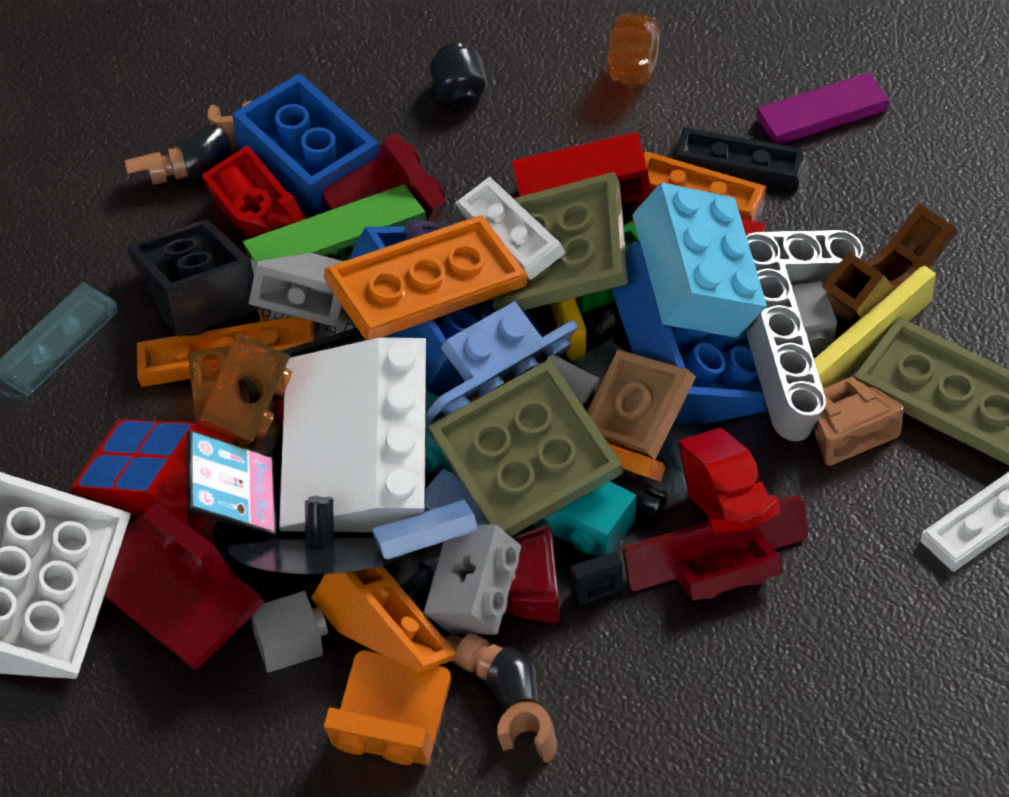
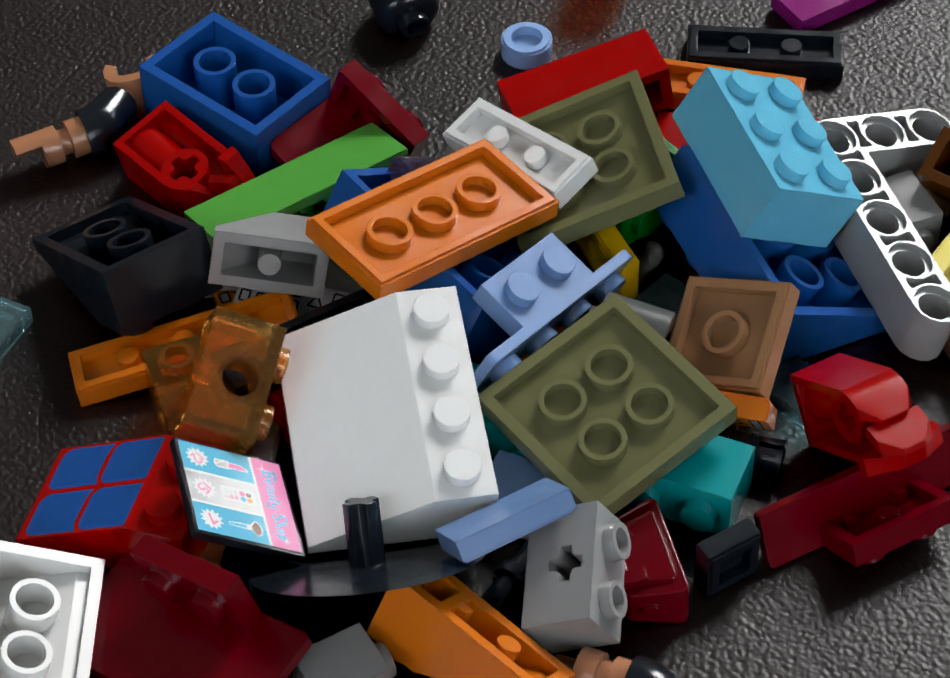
camera: 10 degrees left, 5 degrees down
(550, 127) = (526, 45): none -> light blue tile

